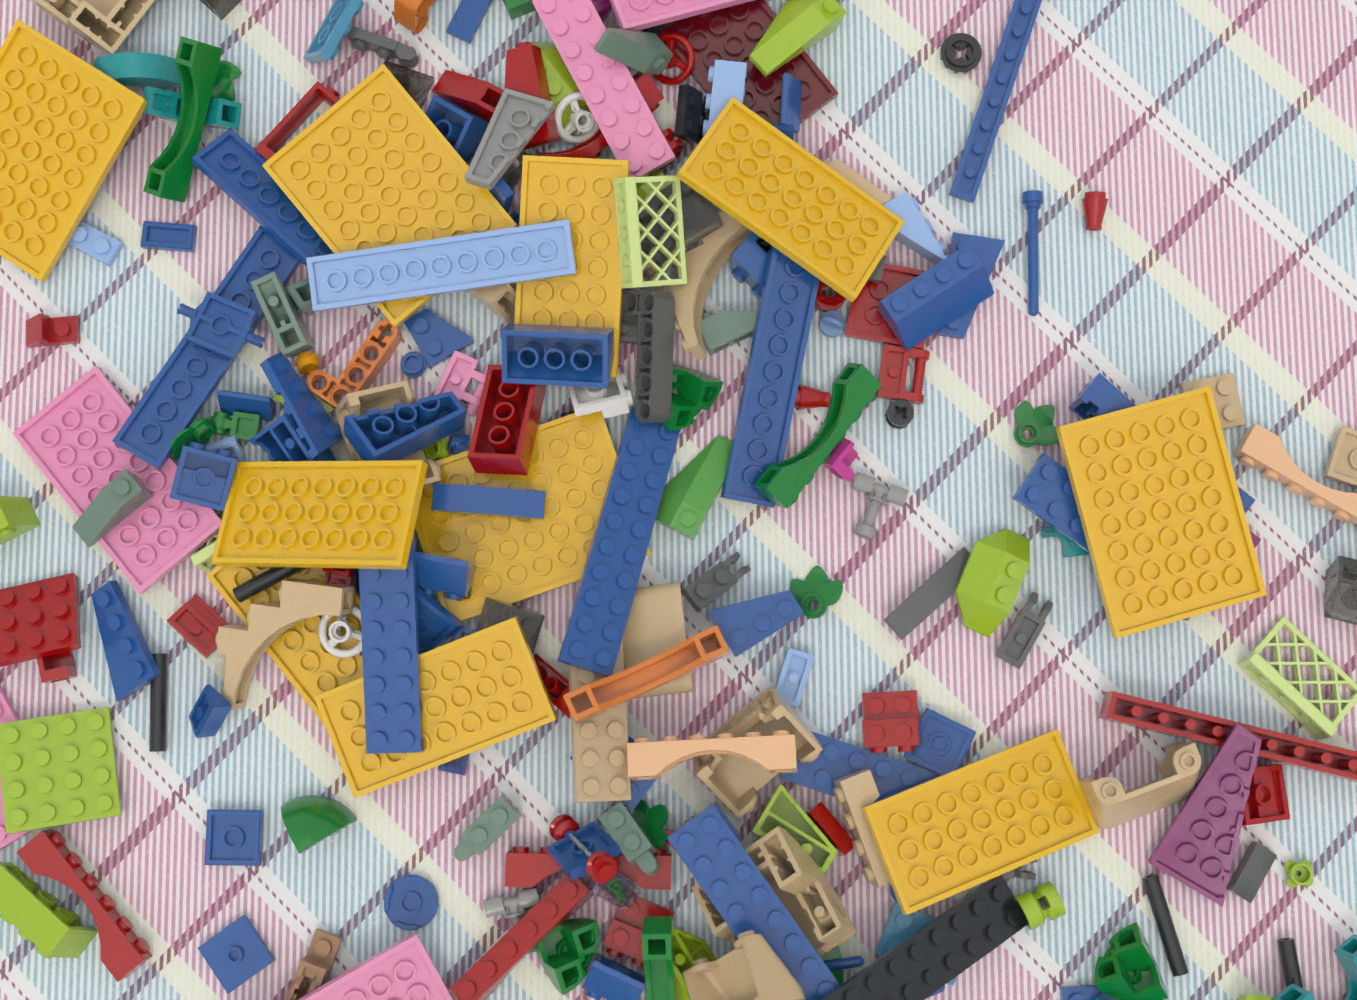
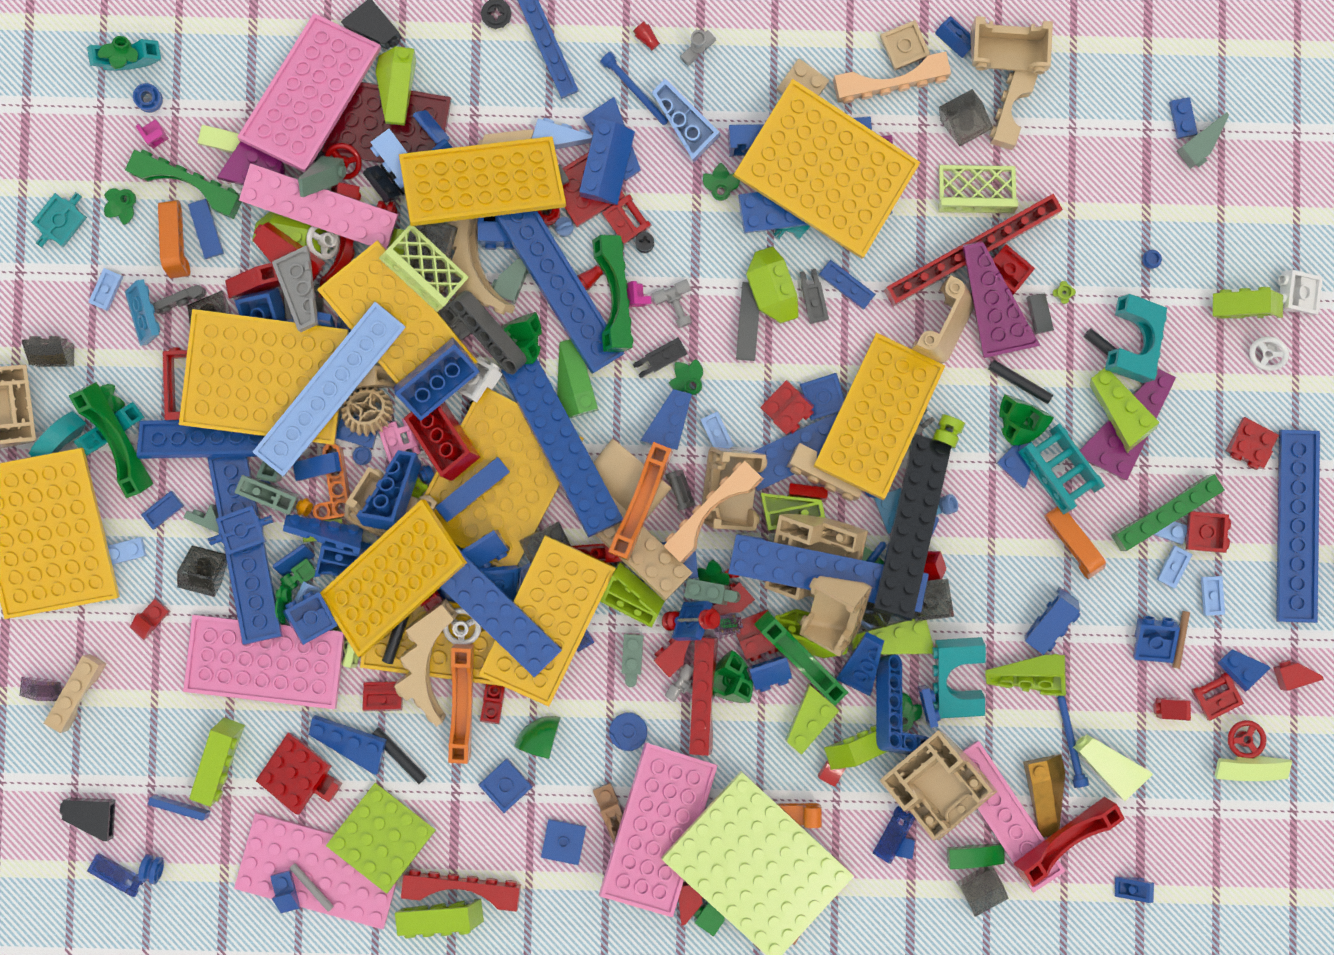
camera: 45 degrees left, 5 degrees up
(111, 507) = (276, 679): sand green slope -> none
(146, 331) = (202, 571): none -> clear smoke slope
(197, 280) = (208, 521): none -> sand green slope
(209, 712) = (431, 735): blue slope -> none
(290, 689) = (462, 699): none -> orange arch
(301, 740) = (492, 704): none -> red slope
(357, 333) = (317, 466): none -> blue tile
(456, 333) = (372, 419): none -> tan gear
(546, 765) = (632, 597): none -> lime wedge
(700, 701) = (681, 489): none -> dark grey plate
(713, 583) = (630, 422): dark grey hinge -> none
(809, 546) = (662, 357): none -> black hinge
(968, 984) = (948, 504): none -> medium blue tile
(1057, 332) = (689, 124): none -> light blue wedge
(1071, 650) = (847, 284): none -> blue tile
(1144, 265) = (699, 42): none -> light grey bar

